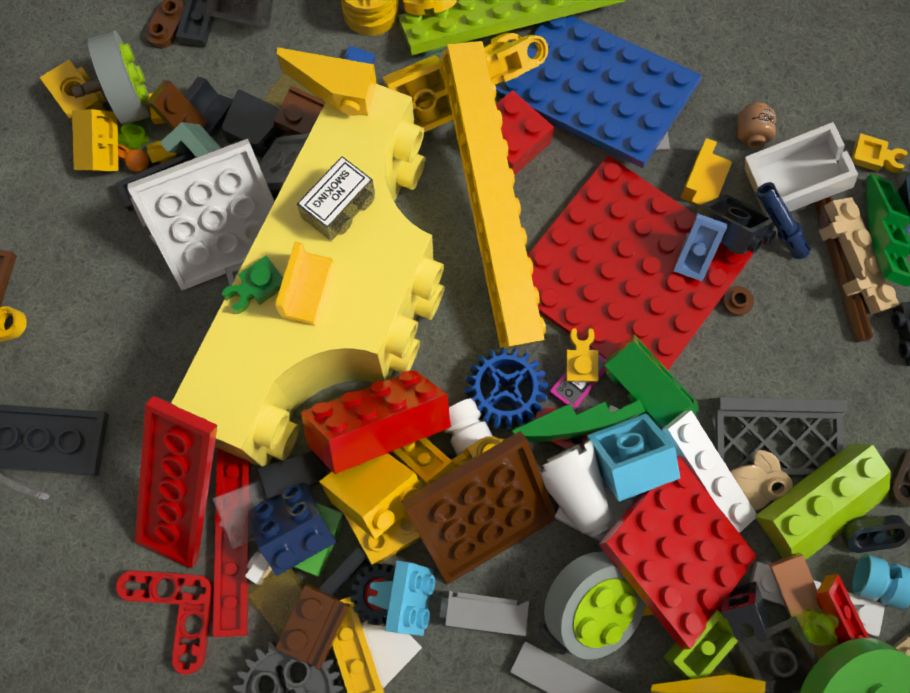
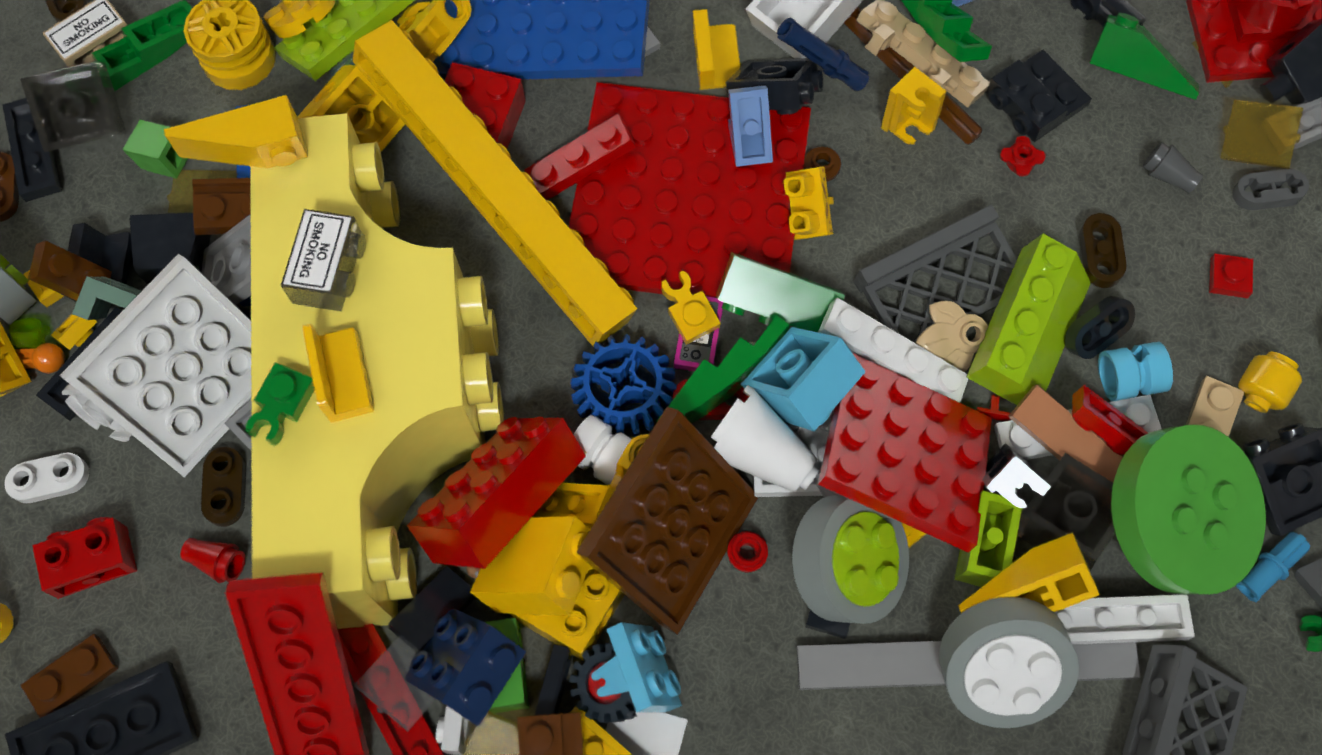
camera: 25 degrees left, 5 degrees down
(40, 386) = (69, 676): none -> reddish brown plate
(89, 311) = (84, 557): none -> red brick
(93, 243) = (45, 478): none -> white plate
(171, 359) = (215, 559): none -> red cone
(202, 310) = (223, 484): none -> dark brown plate
(277, 38) = (152, 150): none -> bright green brick
(485, 613) = (737, 640): light grey window -> none
(538, 554) = (750, 539): none -> red plate
(565, 206) = (581, 157): none -> red plate
(711, 326) = (809, 203): none -> yellow hips
(760, 552) = (993, 410): none -> red piece
(817, 635) = (1096, 460): clear neon green plate -> none
(832, 291) = (913, 102): none -> yellow hinge
(883, 374) = (1018, 164): none -> red plate

